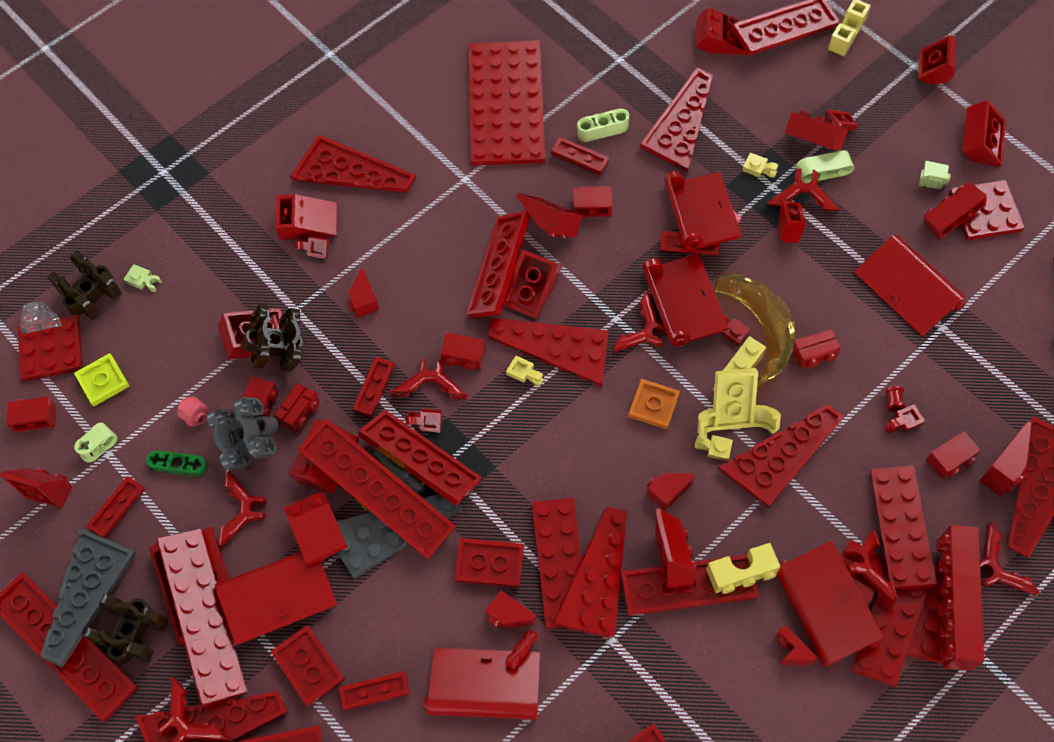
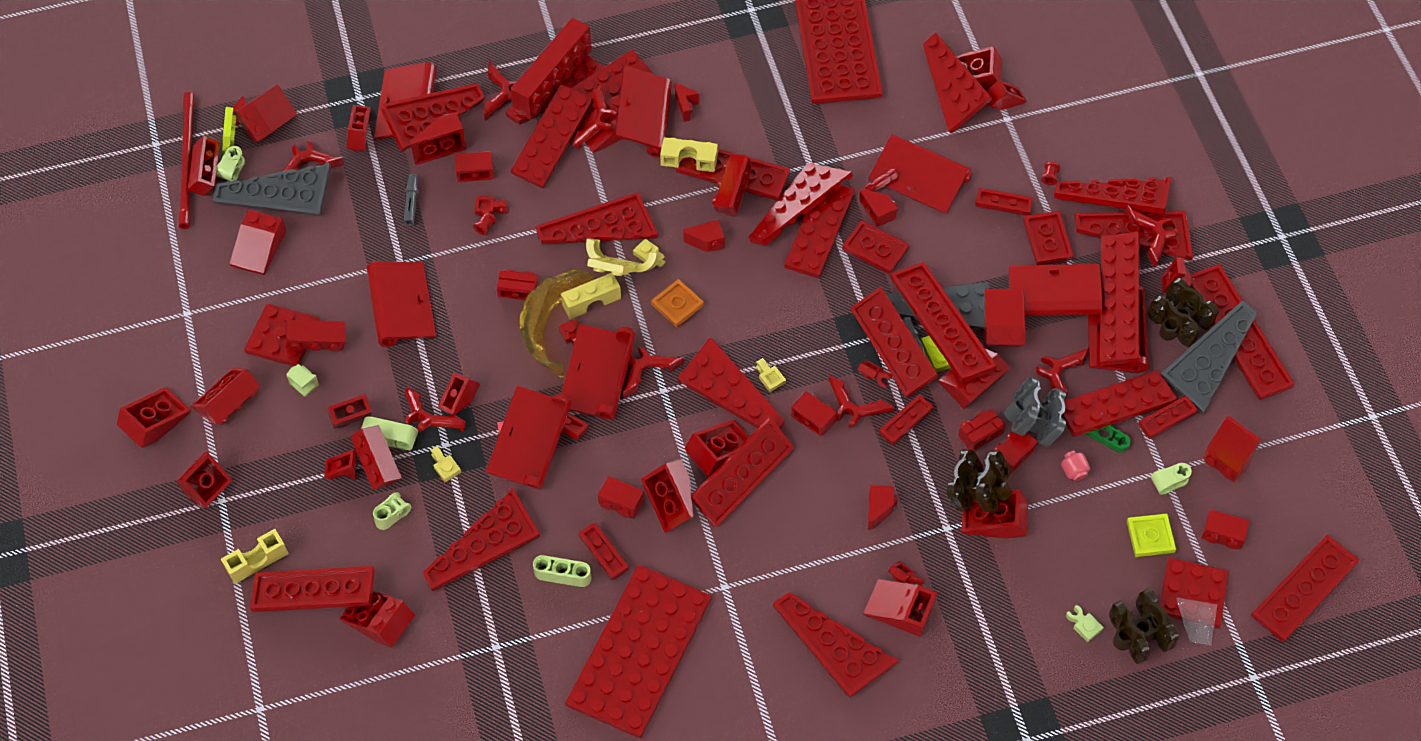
camera: 155 degrees left, 5 degrees down
(146, 674) = (1175, 270): none -> red slope
(170, 497) = (1117, 403): none -> red plate
(773, 110) = (393, 508): none -> yellowish green piece
(870, 163) = (349, 411): none -> red brick
(988, 395) = (411, 193): none -> dark grey pin
(1026, 92) = (151, 416): none -> red slope

